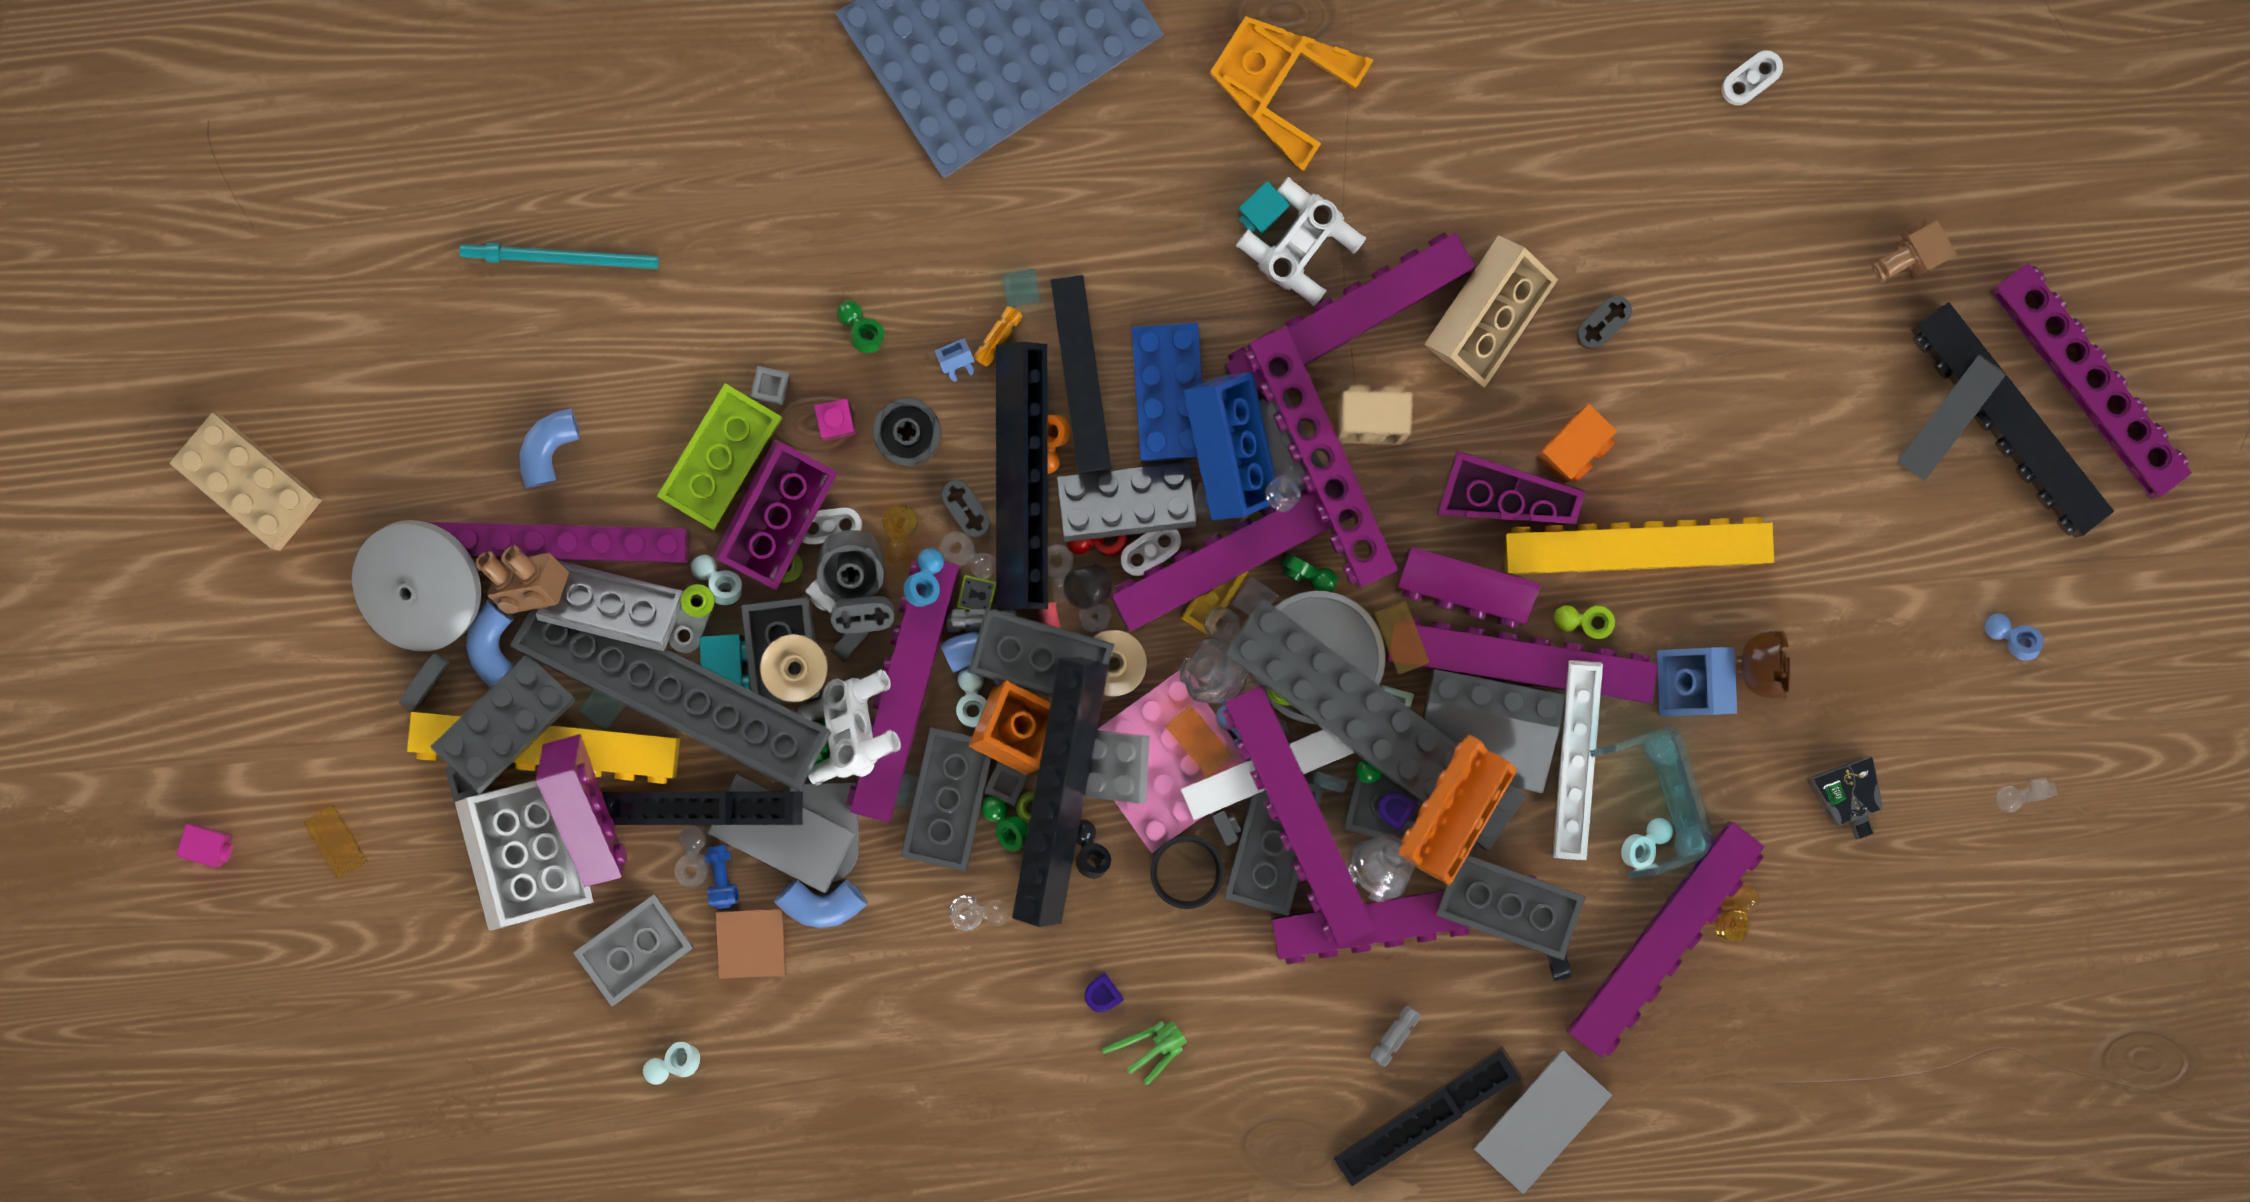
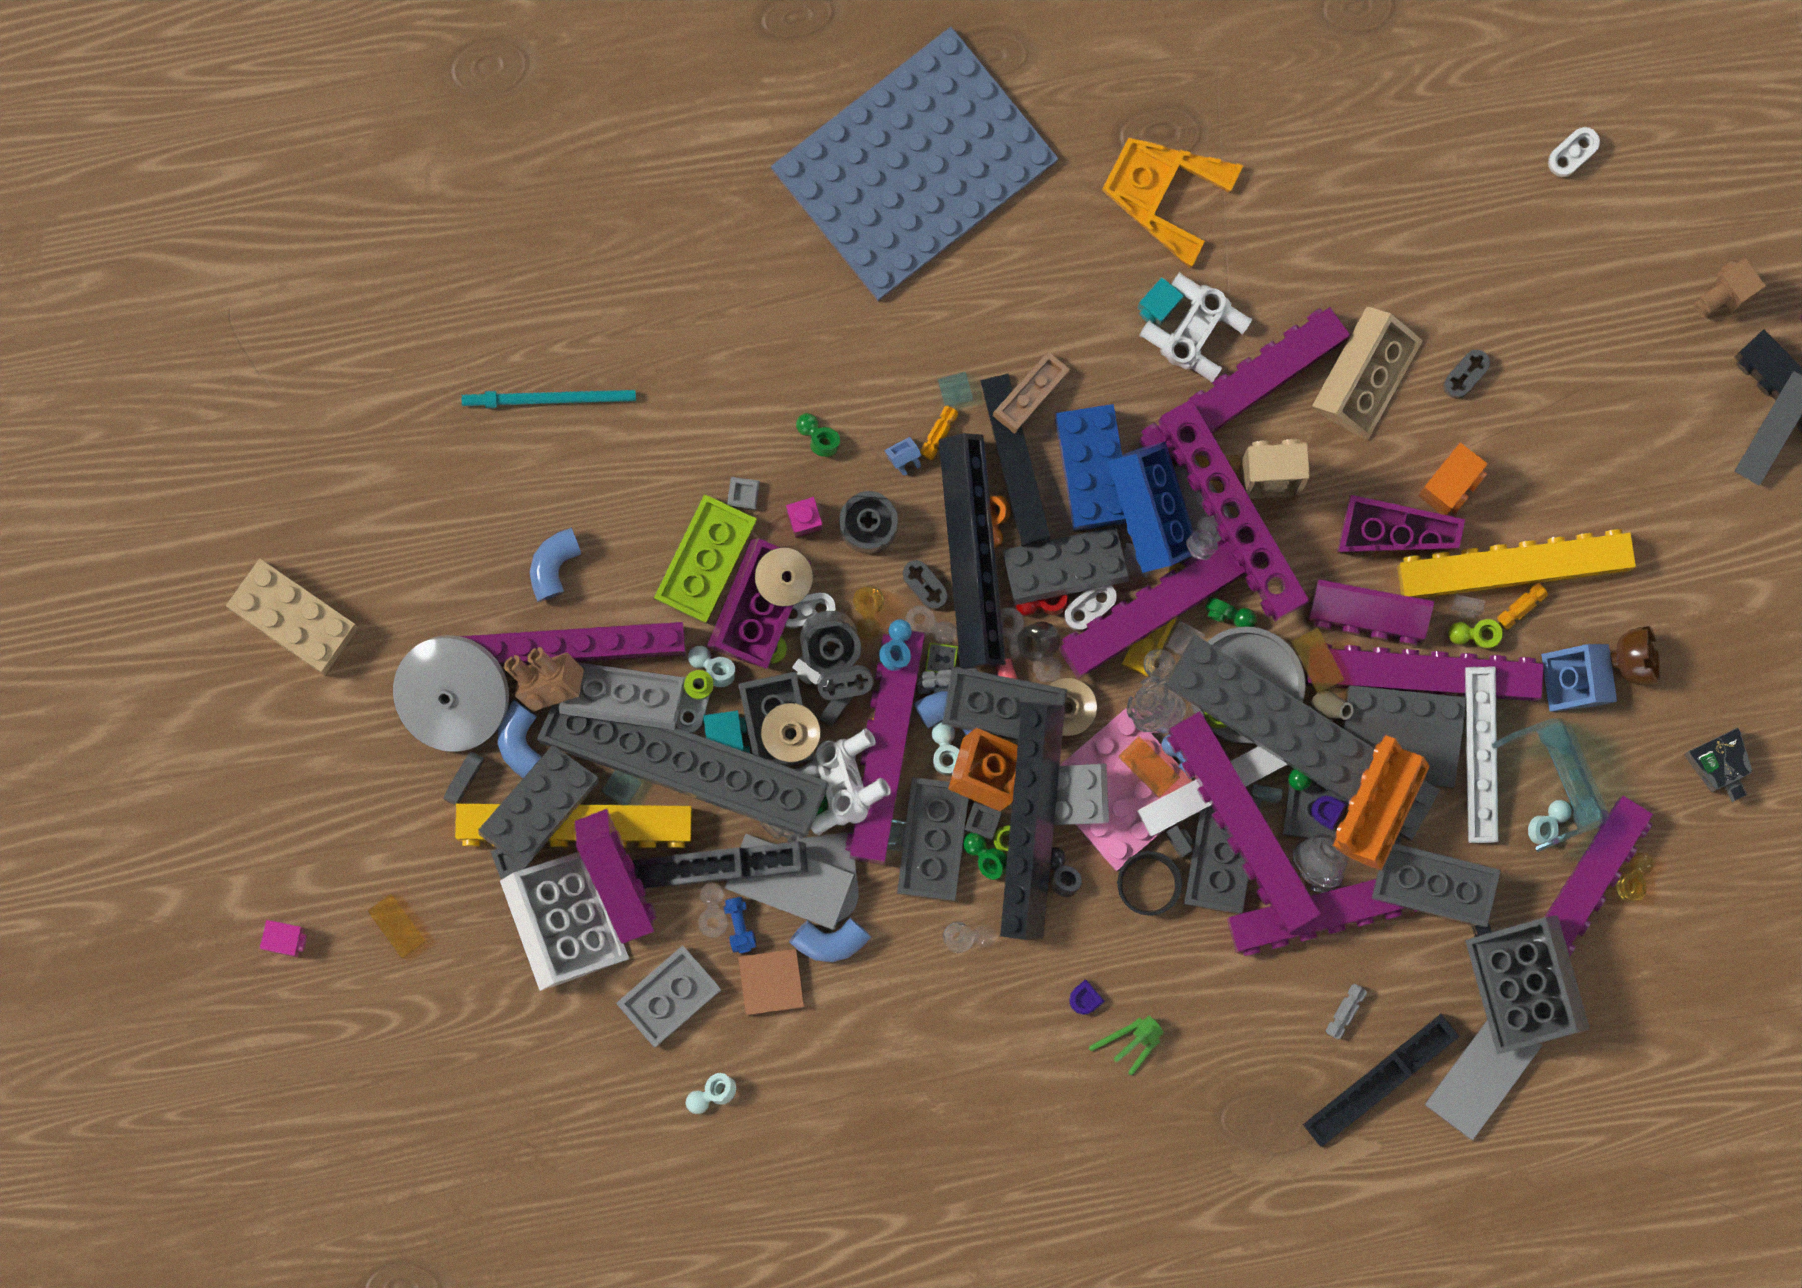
camera: 10 degrees left, 5 degrees down
(787, 485) = (769, 577): none -> tan dish
(1106, 300) = (1031, 392): none -> medium nougat plate
(1412, 691) = (1331, 706): none -> dark tan cone
(1578, 589) = (1467, 606): none -> clear plate
(1603, 1029) = (1527, 984): none -> dark grey slope
(1640, 593) = (1522, 606): none -> light orange axle

